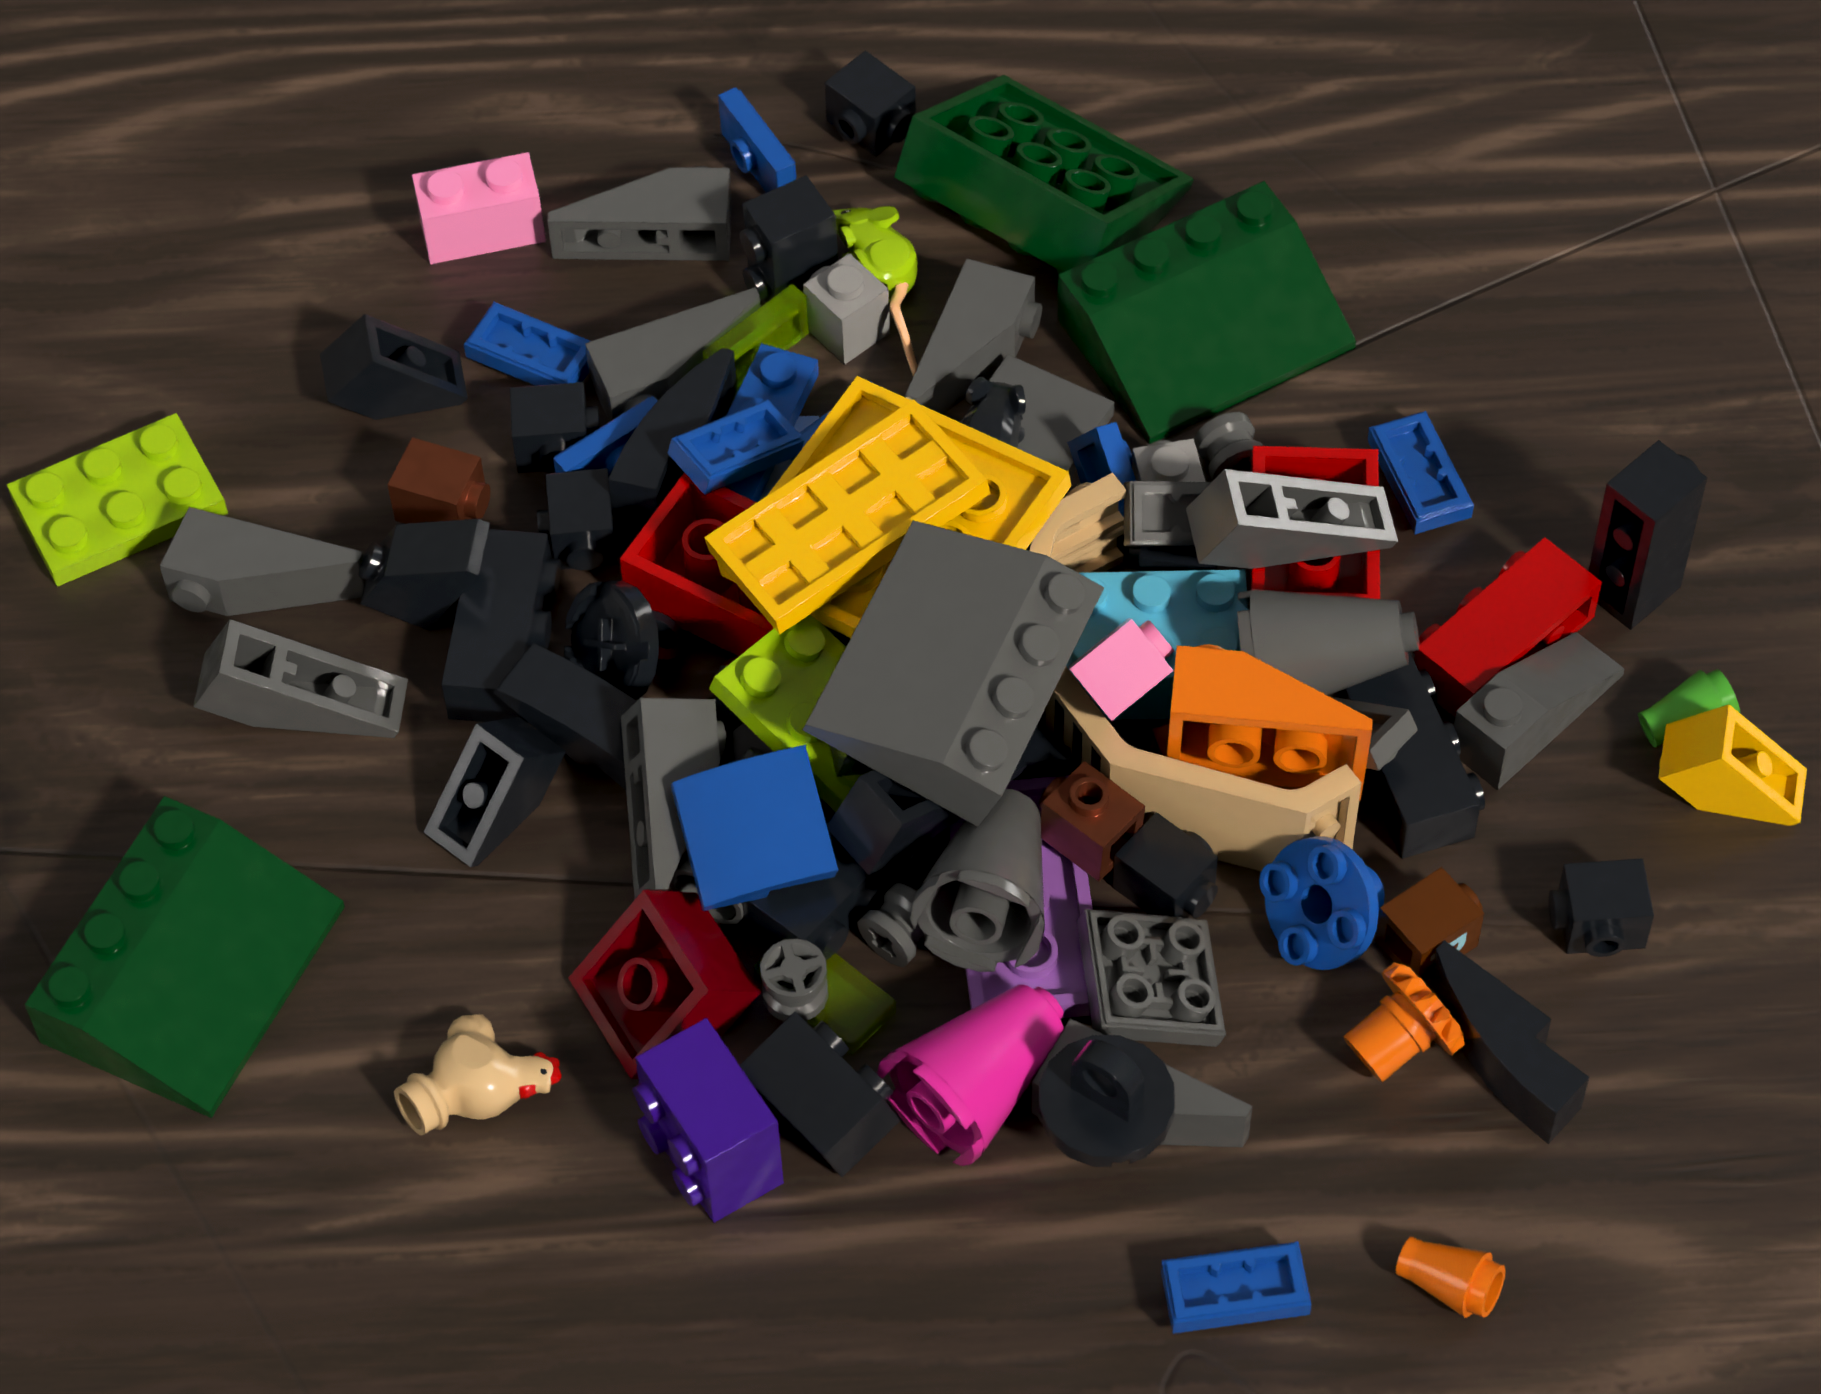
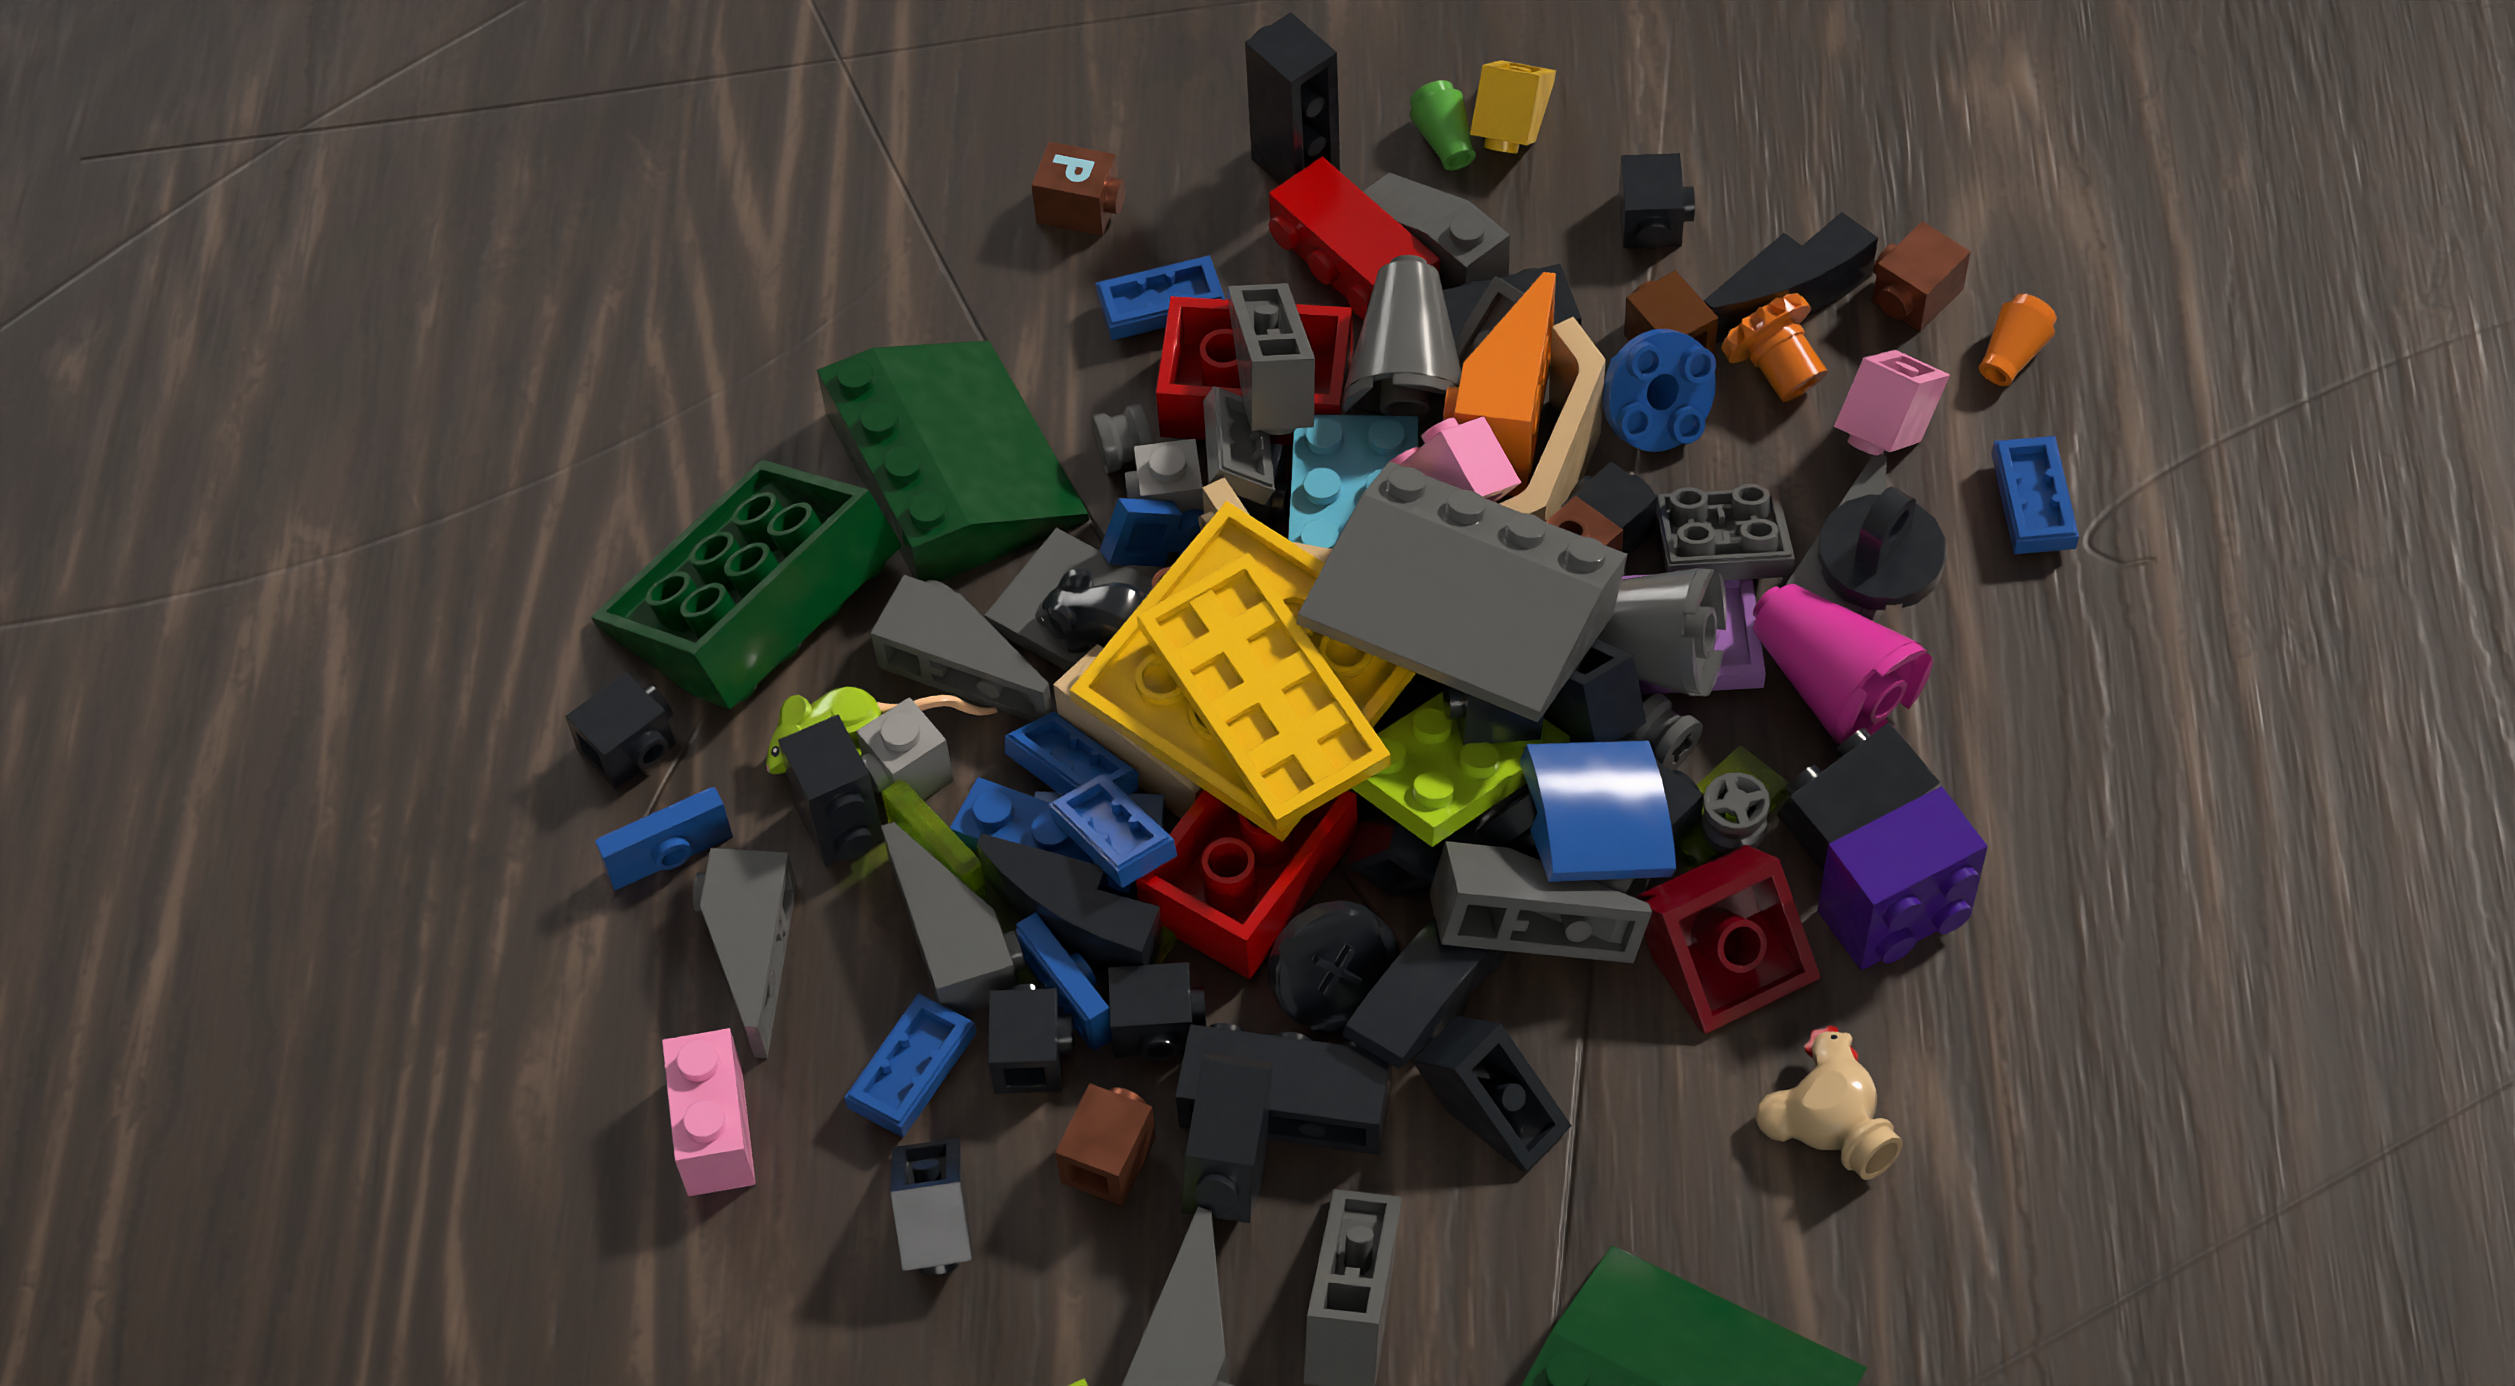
camera: 85 degrees left, 0 degrees up
(1317, 1118) = (1890, 402): none -> bright pink brick
(1527, 1172) = (1919, 276): none -> copper brick
(1550, 386) = (1077, 188): none -> copper brick

